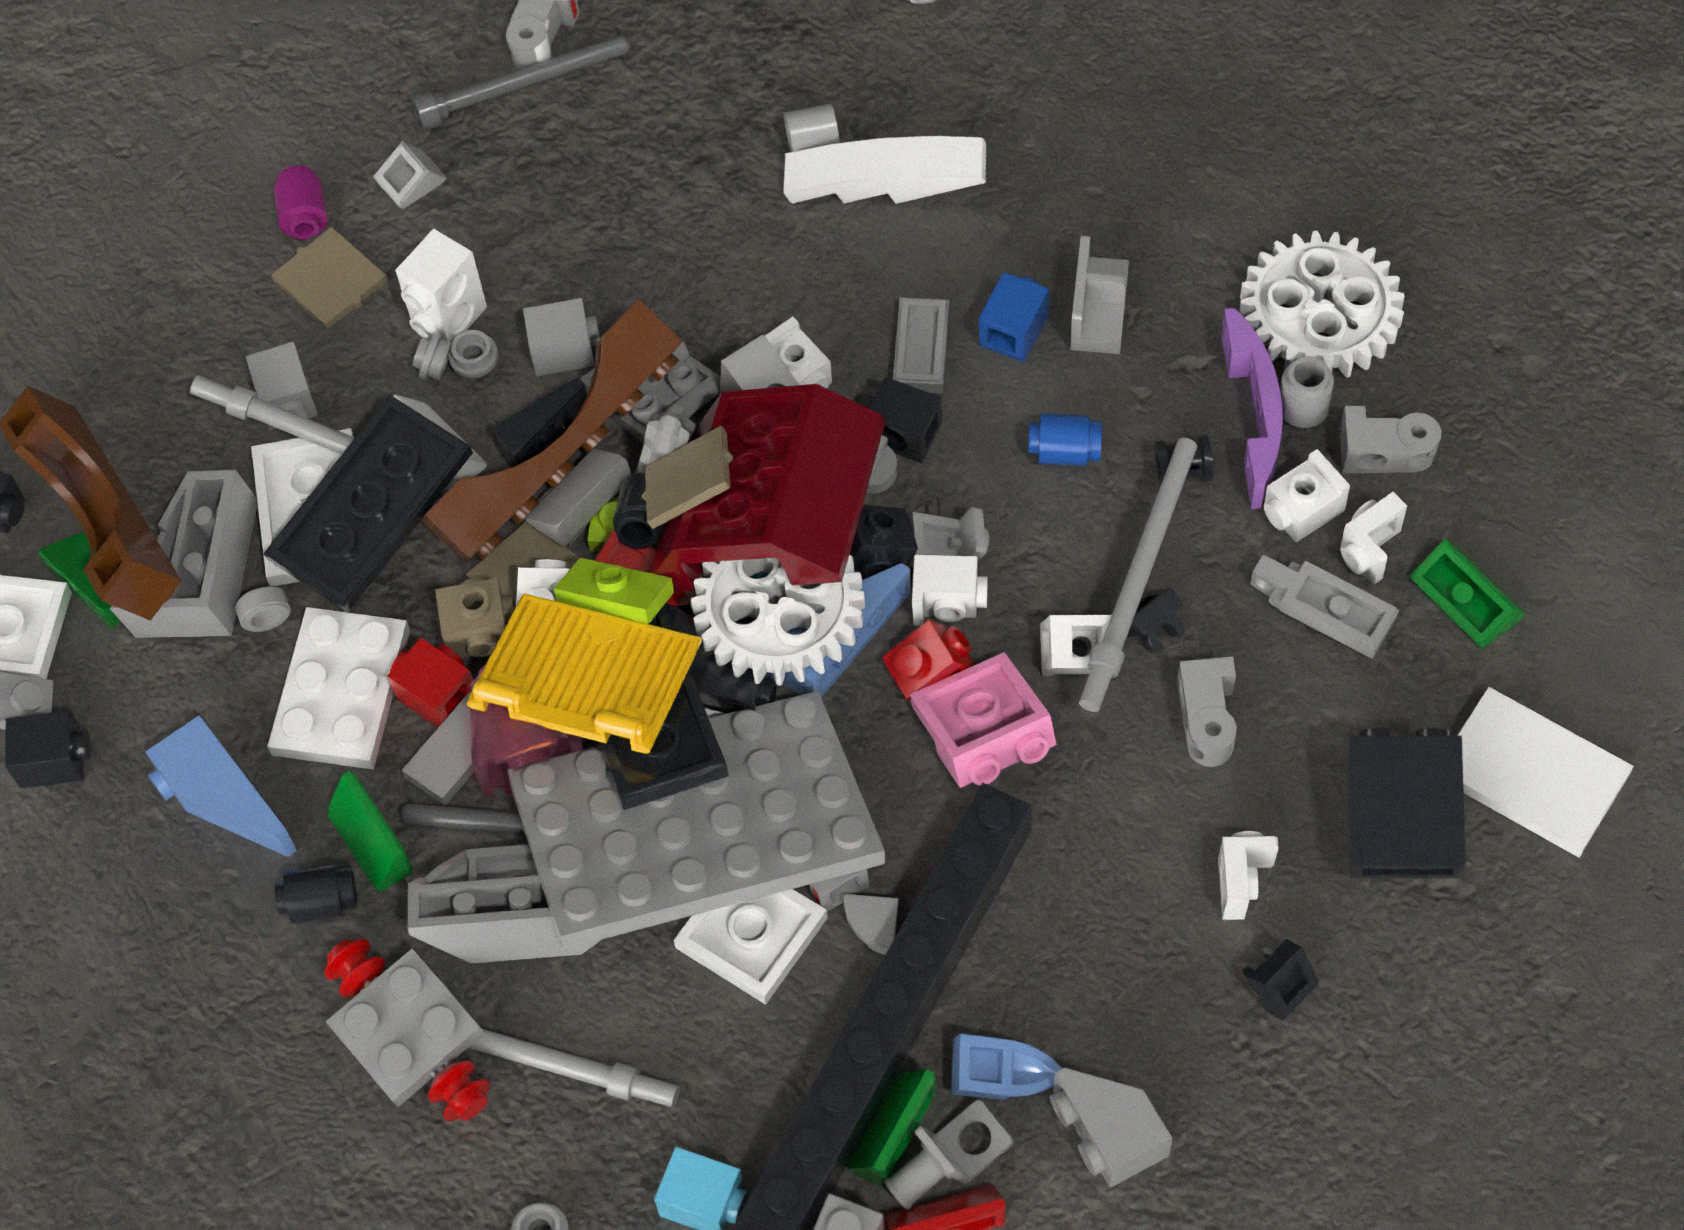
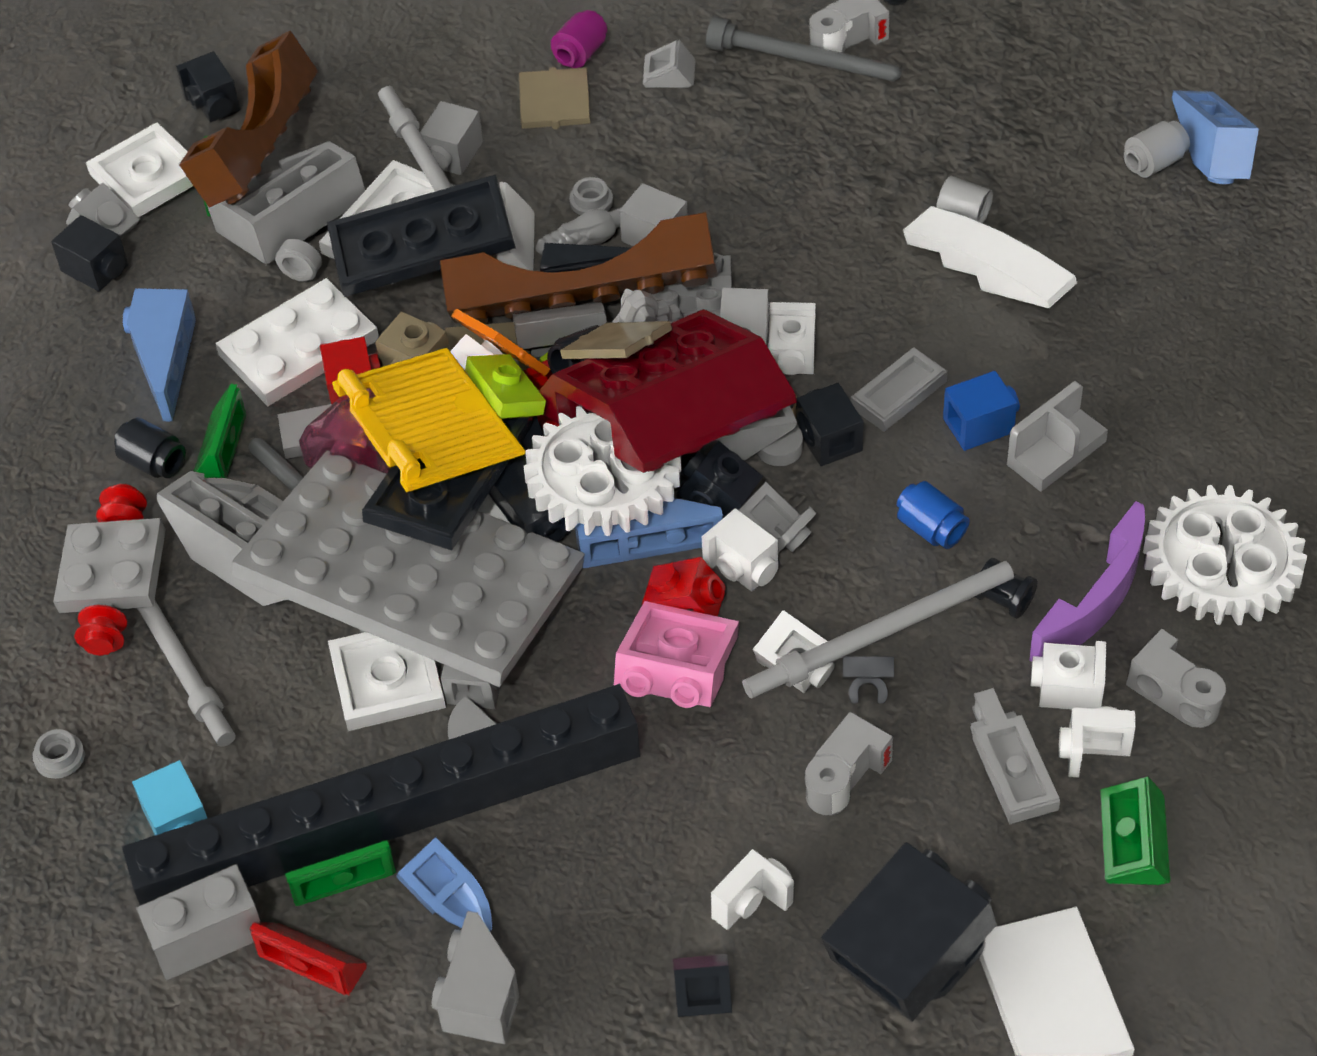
camera: 40 degrees right, 10 degrees down
(432, 357) = (560, 181): light grey plate -> none
(441, 287) = (601, 136): white brick -> none
(502, 389) = (588, 229): none -> light grey piece
(556, 552) = (499, 341): none -> orange window
(944, 1155) = (350, 914): light grey bracket -> none
(1306, 392) = (1143, 600): light grey brick -> none

